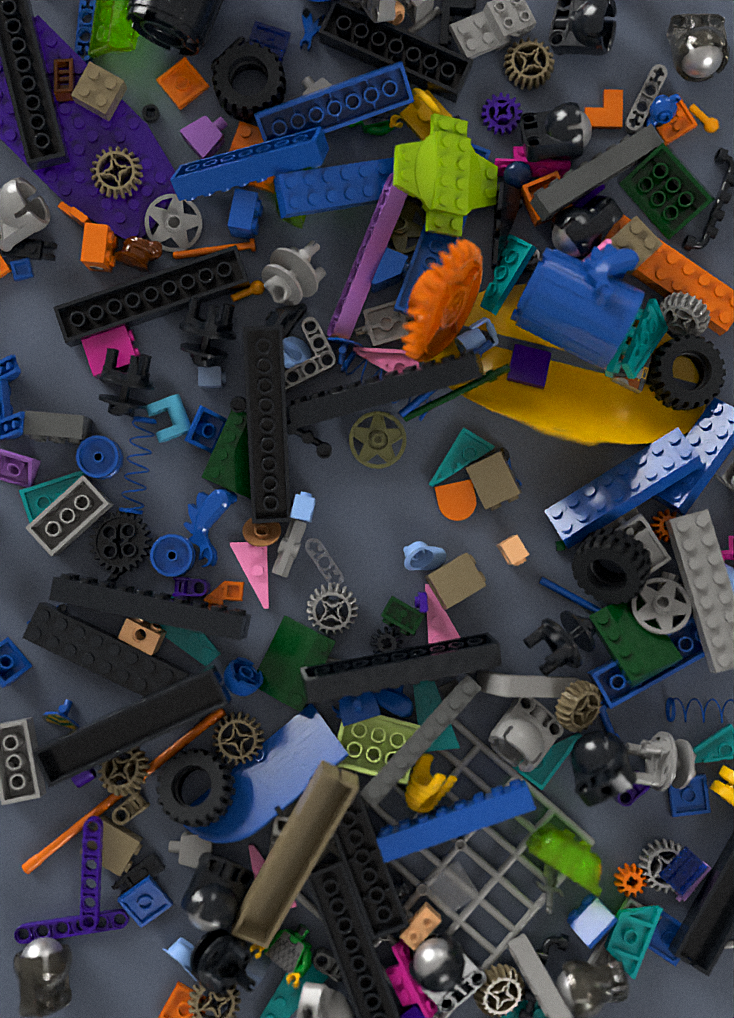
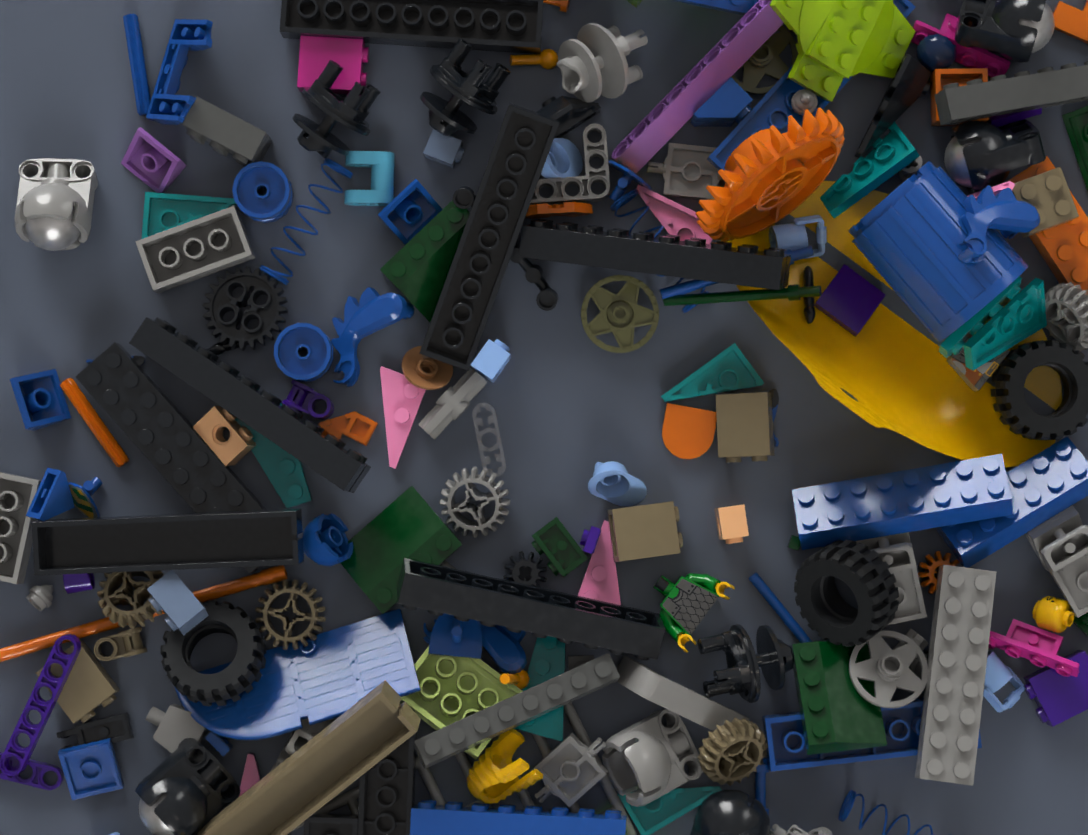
camera: 30 degrees right, 0 degrees up
(39, 727) = (51, 497): none -> blue slope
(49, 662) = (94, 422): none -> orange axle
(62, 797) = (41, 596): none -> light grey plate
(155, 765) = (177, 602): none -> sand blue brick
(226, 847) = (219, 742): none -> blue tile
(312, 383) = (569, 209): none -> orange tile
(413, 718) = (519, 679): none -> light orange bar
(442, 243) = (803, 100): none -> light grey plate
(473, 765) = (570, 770): none -> light grey plate
(504, 383) = (808, 280): none -> black piece
(505, 617) = (687, 603): none -> torso

